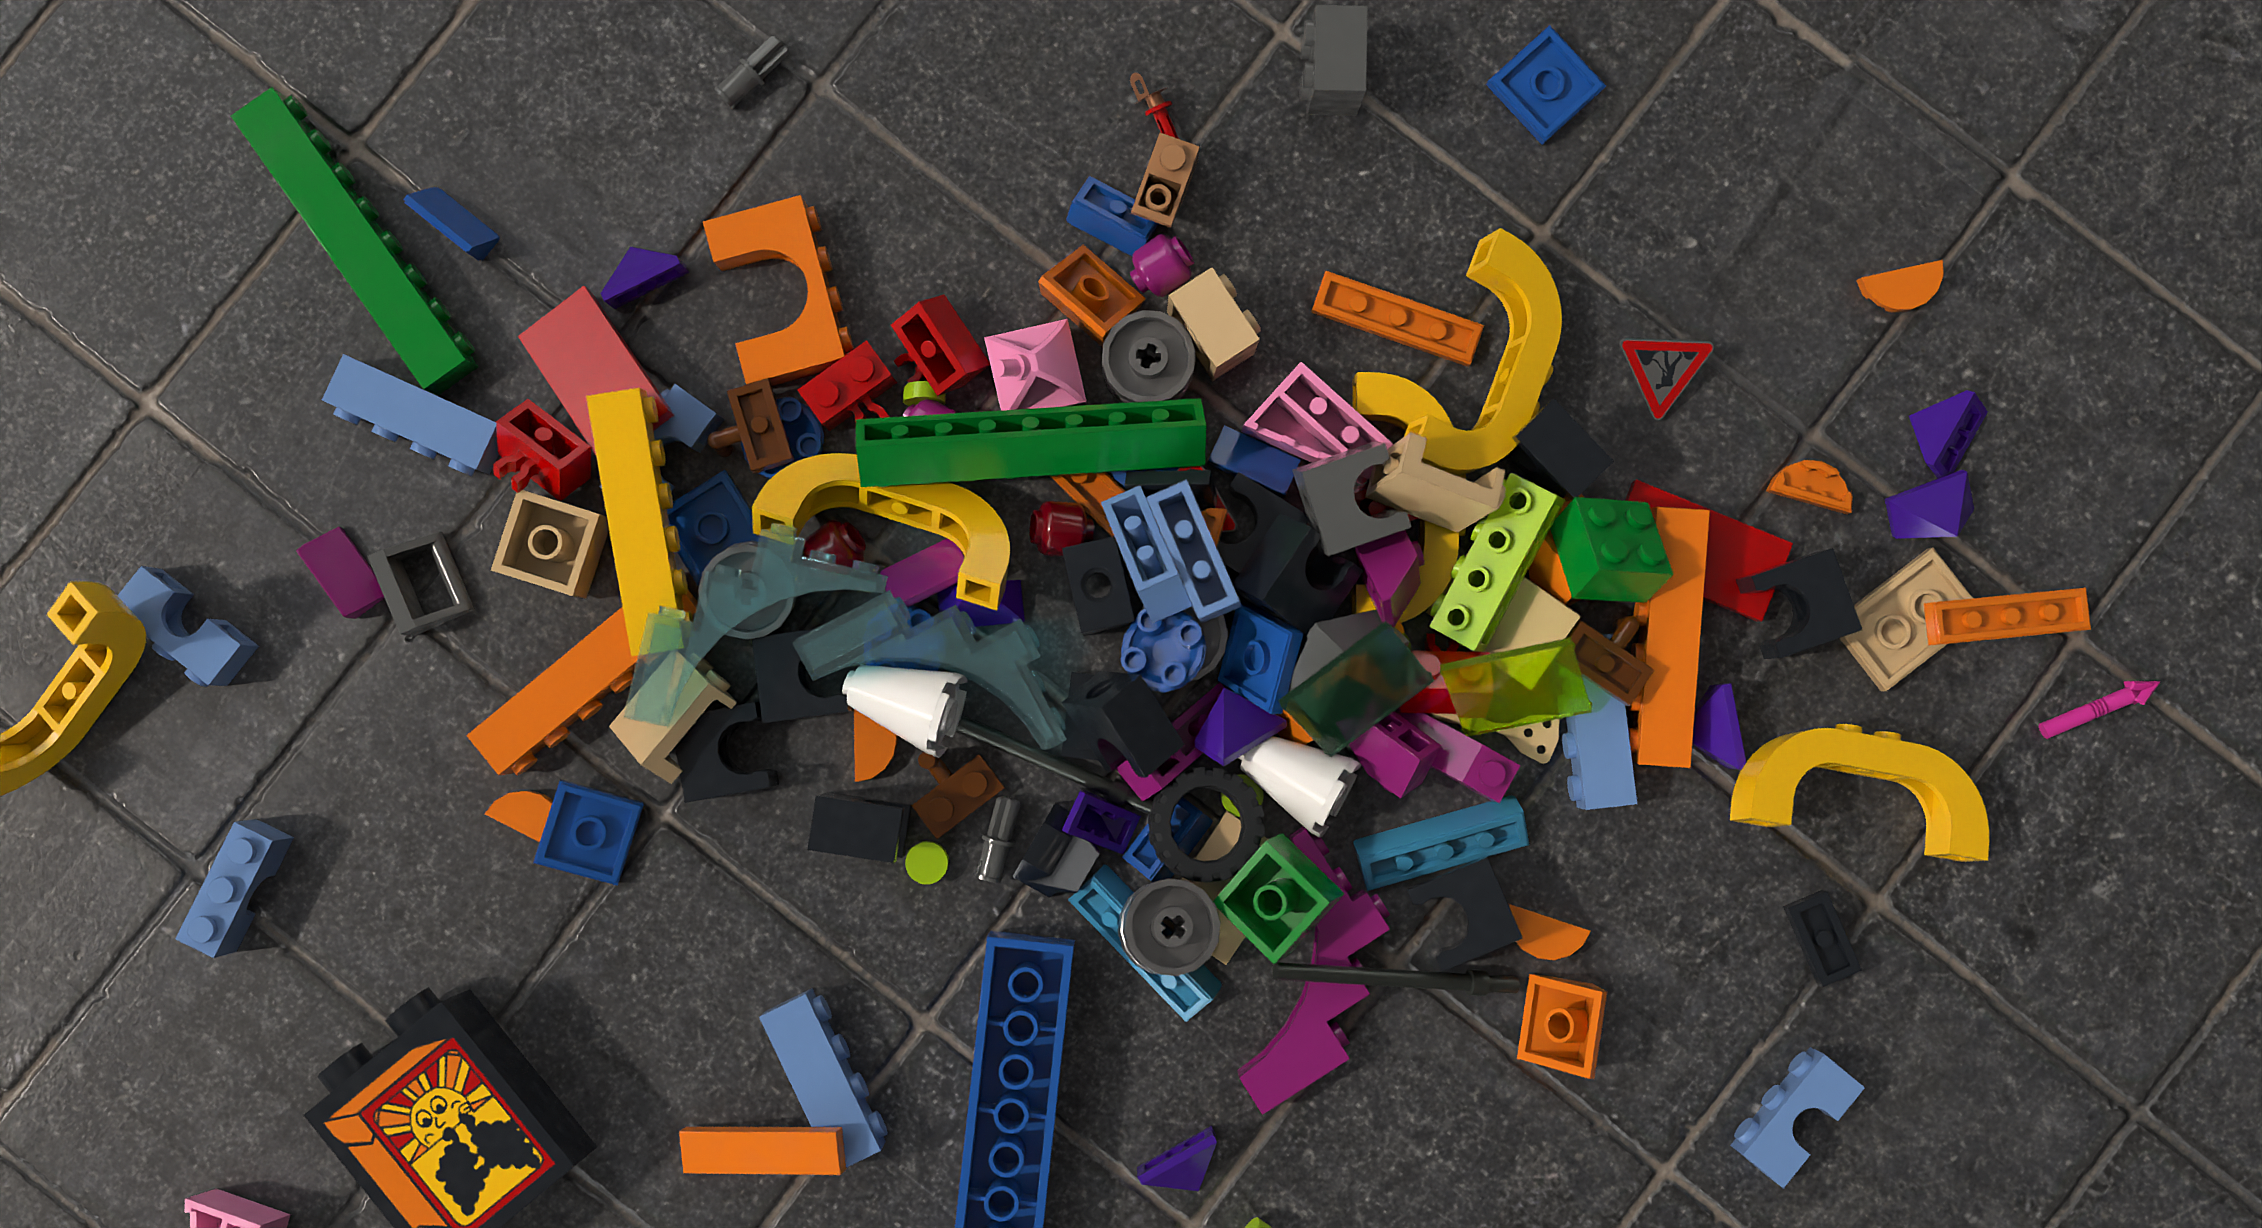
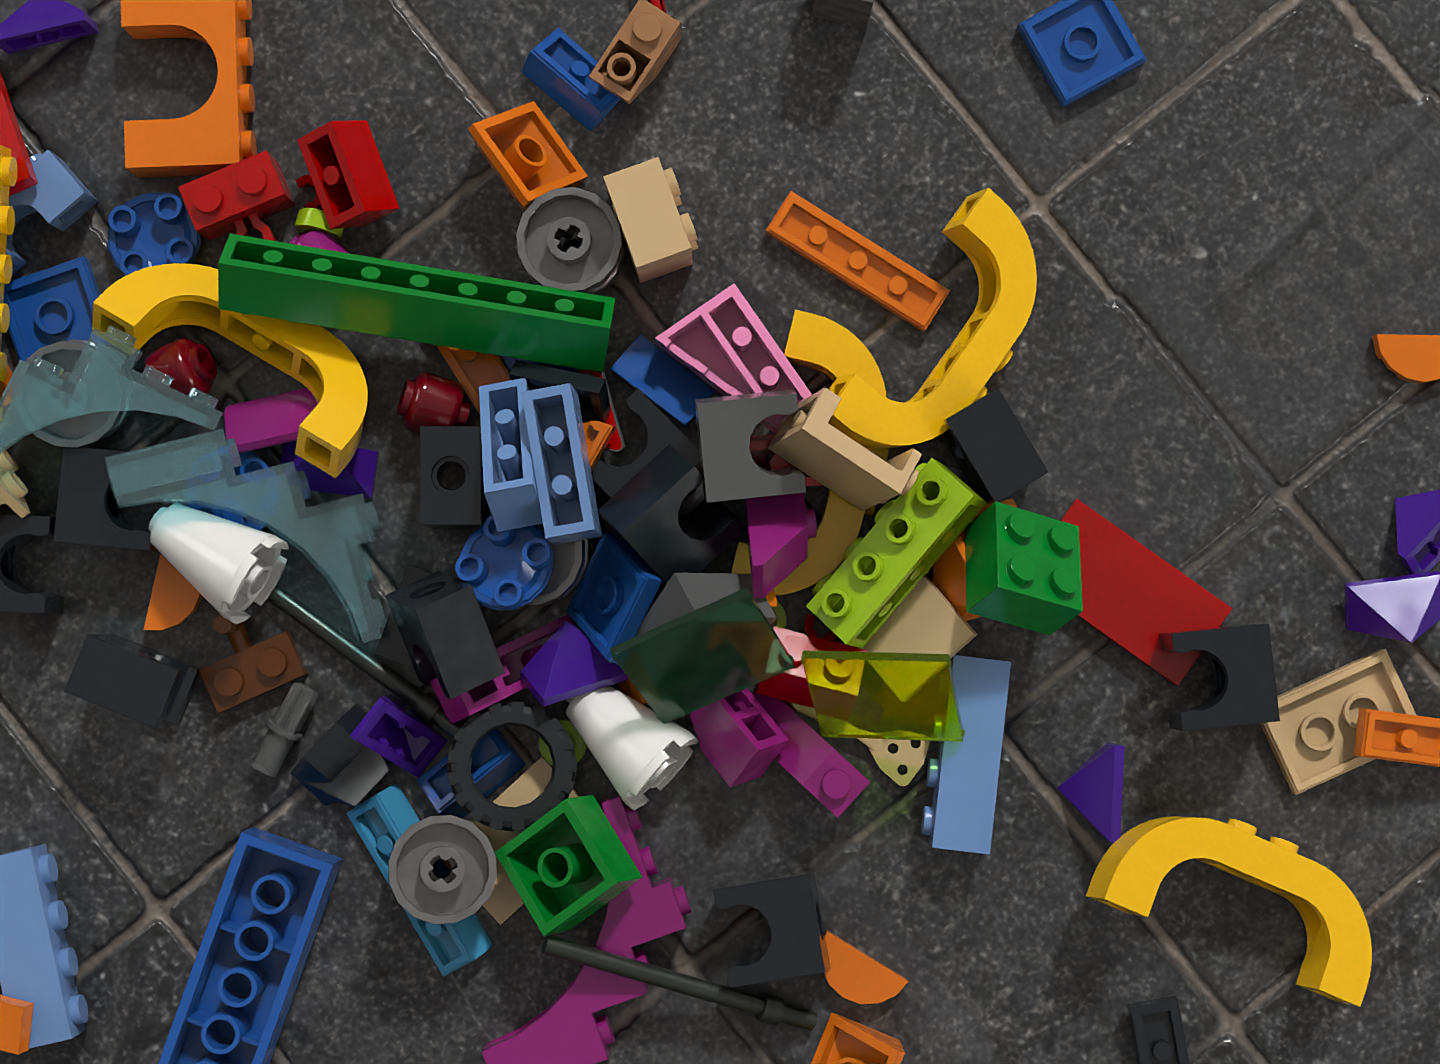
camera: 15 degrees right, 0 degrees up
(757, 427) = (126, 218): reddish brown plate -> none
(927, 862) = (202, 736): lime tile -> none
(1036, 367) = (446, 223): bright pink piece -> none
(1161, 265) = (611, 142): magenta head -> none
(1441, 842) = (768, 846): dark azure slope -> none
(1606, 661) = (991, 690): reddish brown plate -> none
(1664, 368) = (1135, 383): piece -> none
(1671, 644) = (1067, 687): orange brick -> none
(1813, 484) = (1272, 549): orange tile -> none

